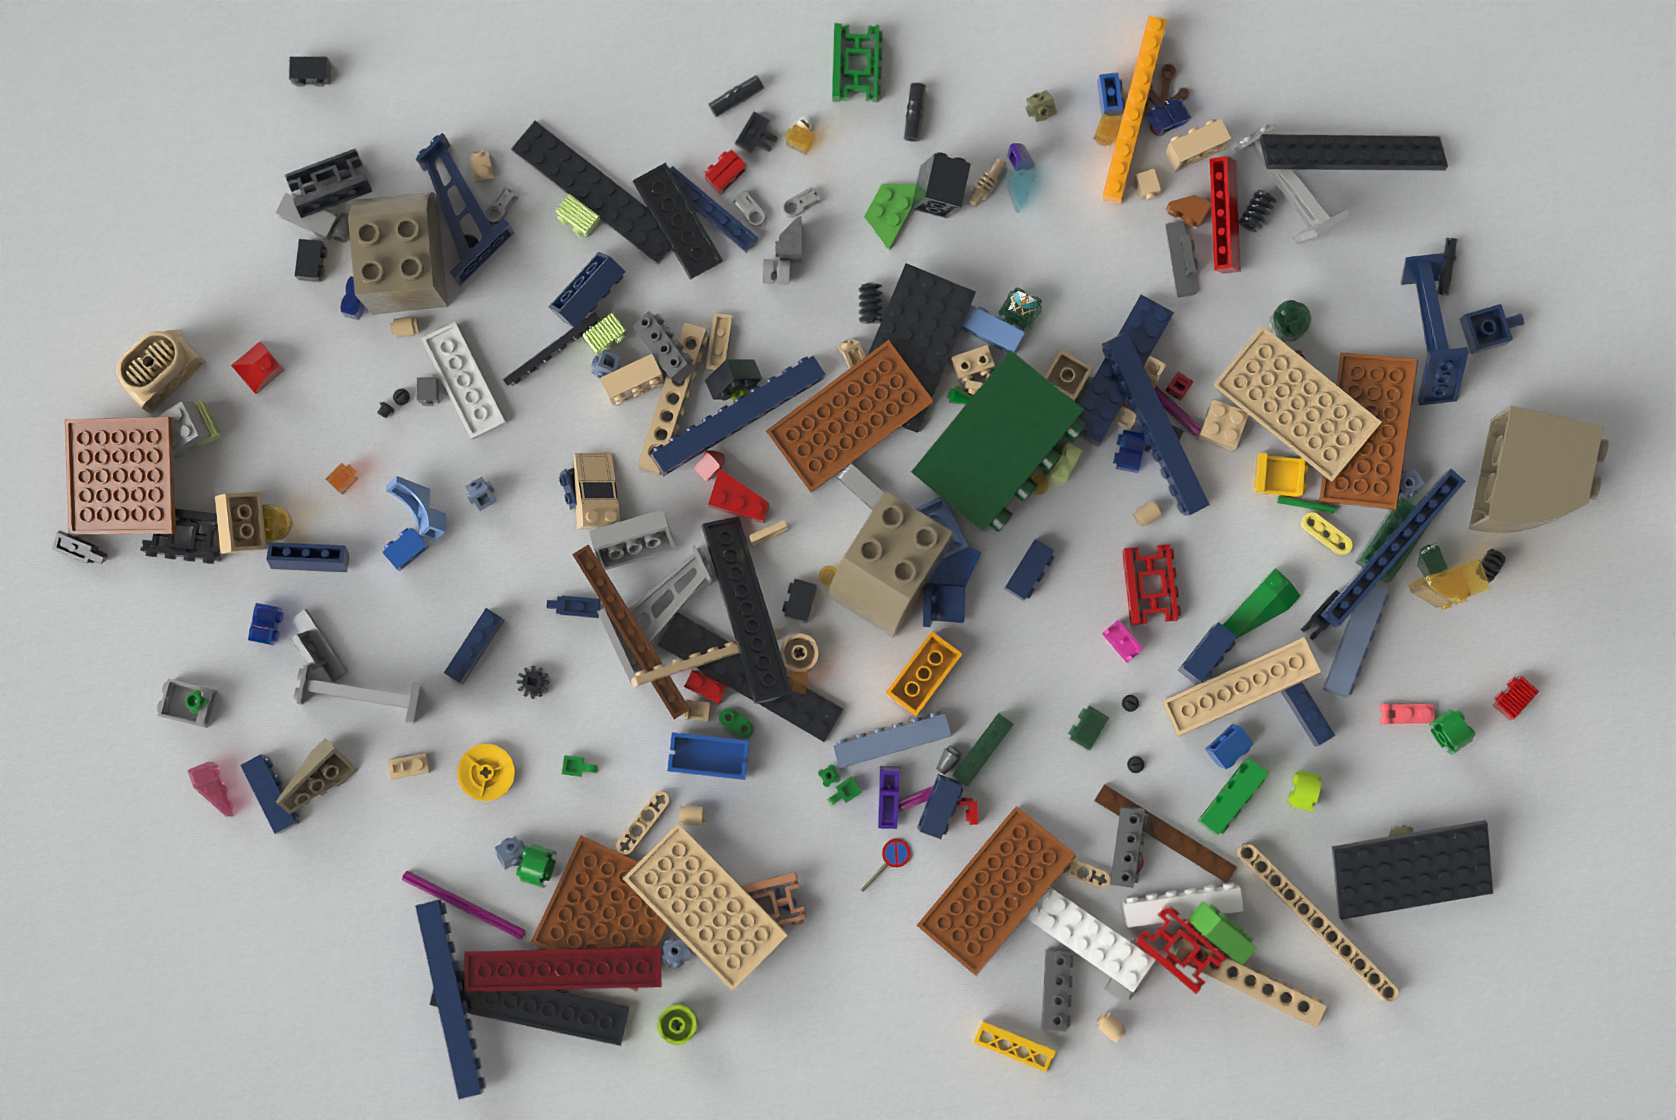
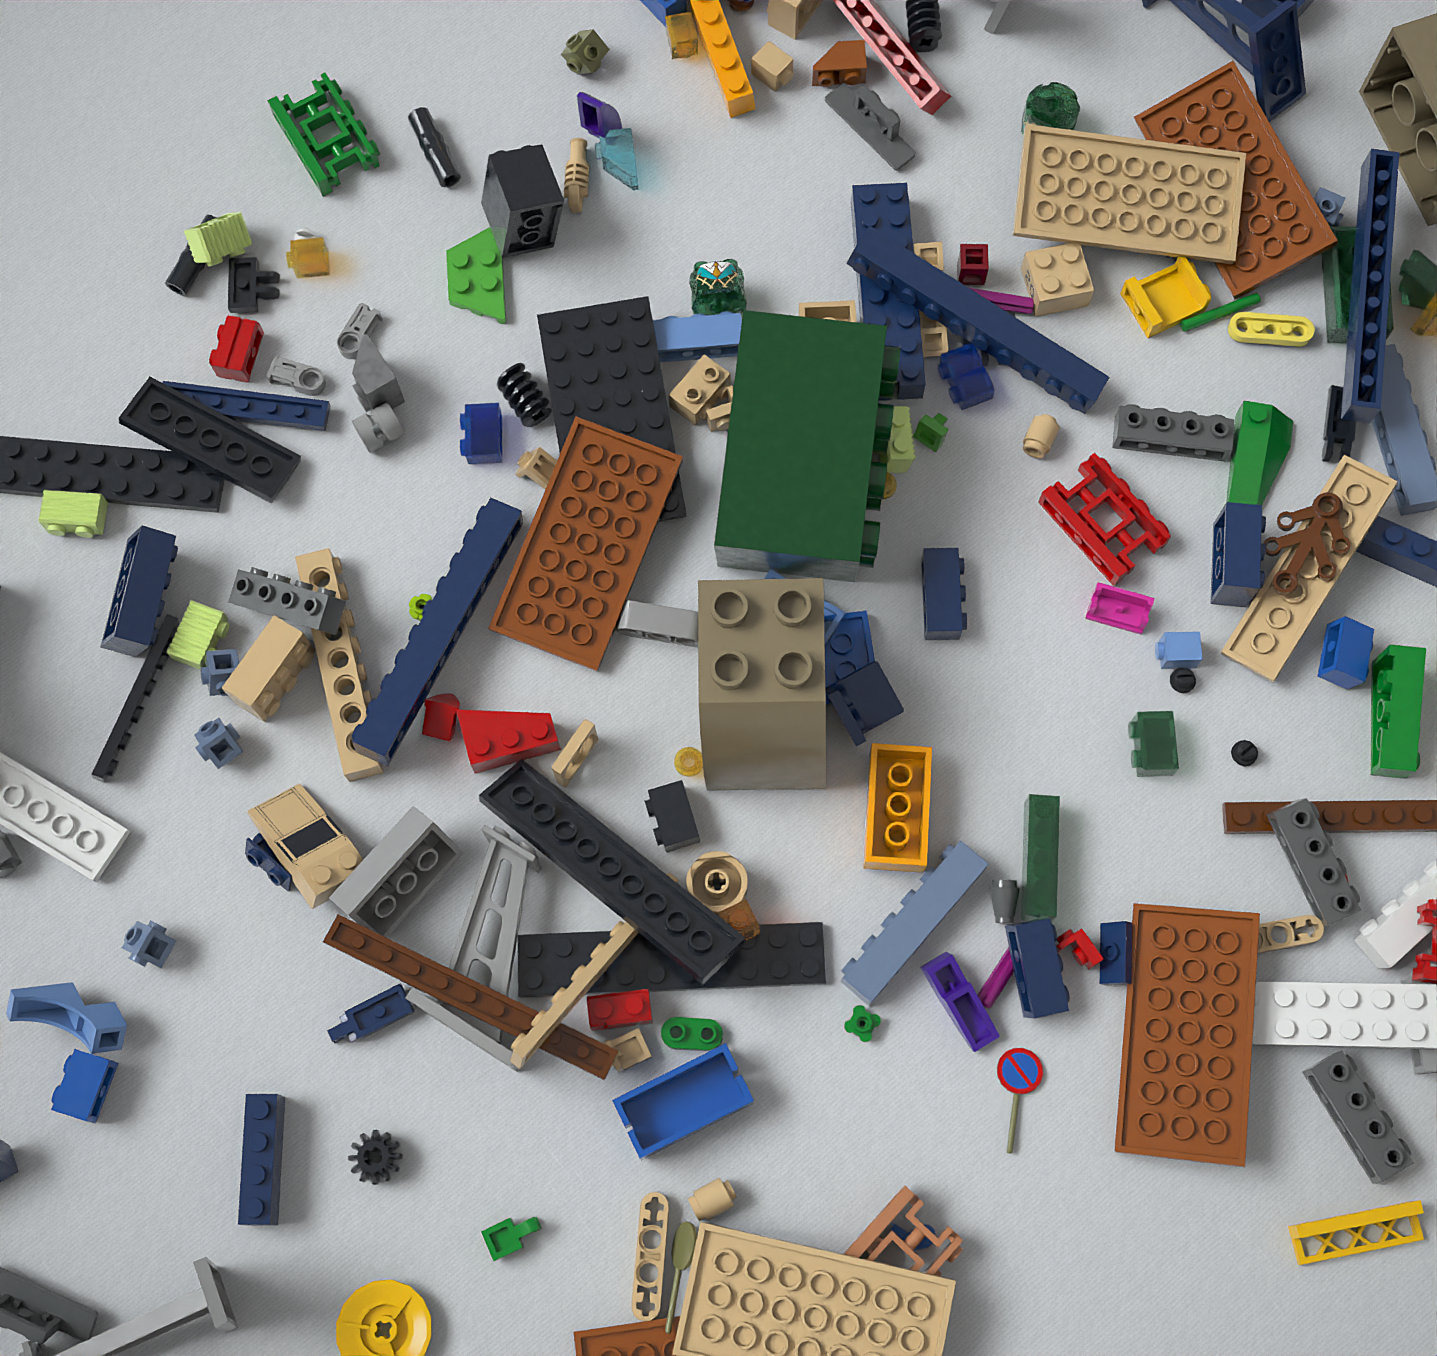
camera: 30 degrees left, 10 degrees down
(580, 404) = (218, 742): none -> sand blue brick
(658, 833) = (682, 1255): none -> olive piece
(718, 340) = (357, 558): tan plate -> none
(731, 376) = (399, 585): black brick -> none
(754, 97) = (218, 238): none -> yellowish green brick
(833, 311) = (482, 433): none -> clear blue brick
(846, 790) = (899, 1029): green plate -> none
(958, 396) = (707, 440): green cone -> none
(988, 825) = (1117, 953): none -> dark blue plate
(1088, 471) = (931, 431): none -> bright green tile
(1138, 685) = (1179, 650): none -> medium blue brick
(1224, 559) = (1173, 433): none -> dark grey brick
(1250, 672) = (1309, 539): none -> reddish brown plant

